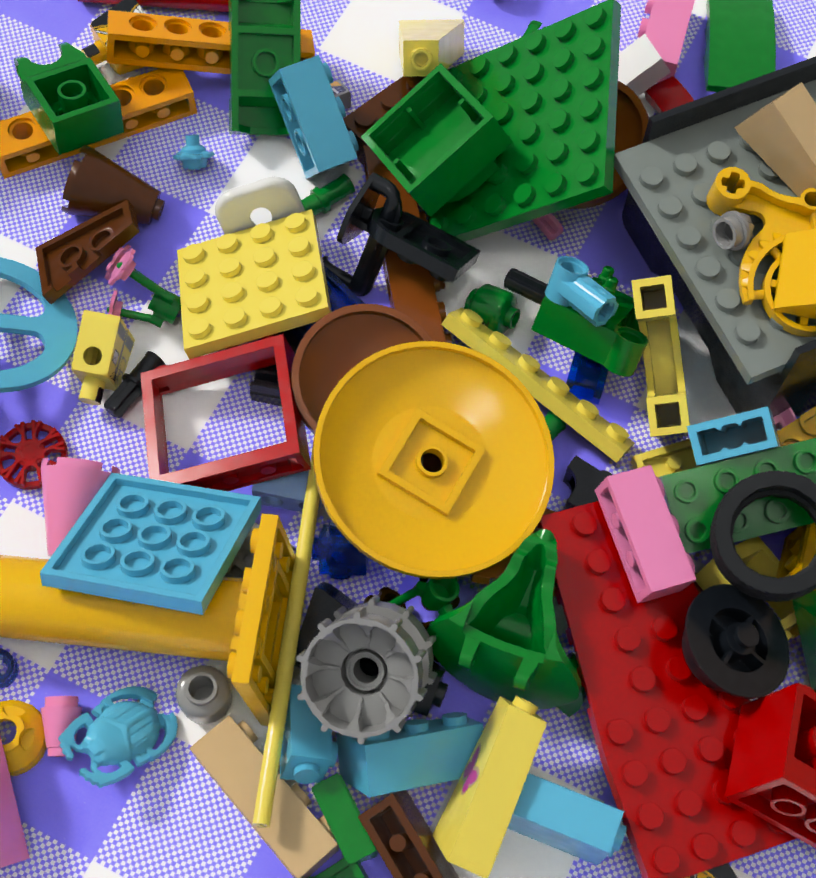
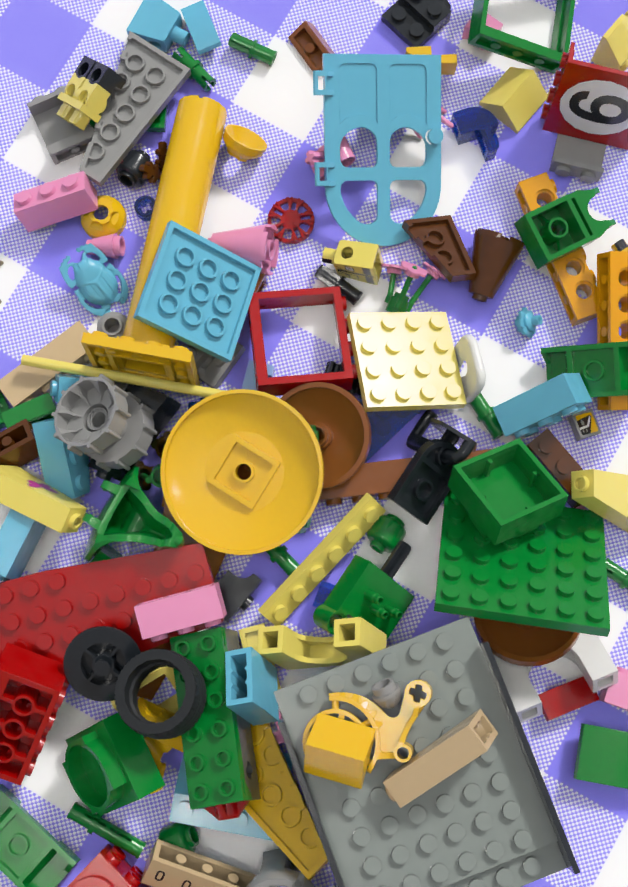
camera: 95 degrees right, 15 degrees up
(574, 288) = (368, 586): medium azure piece -> none

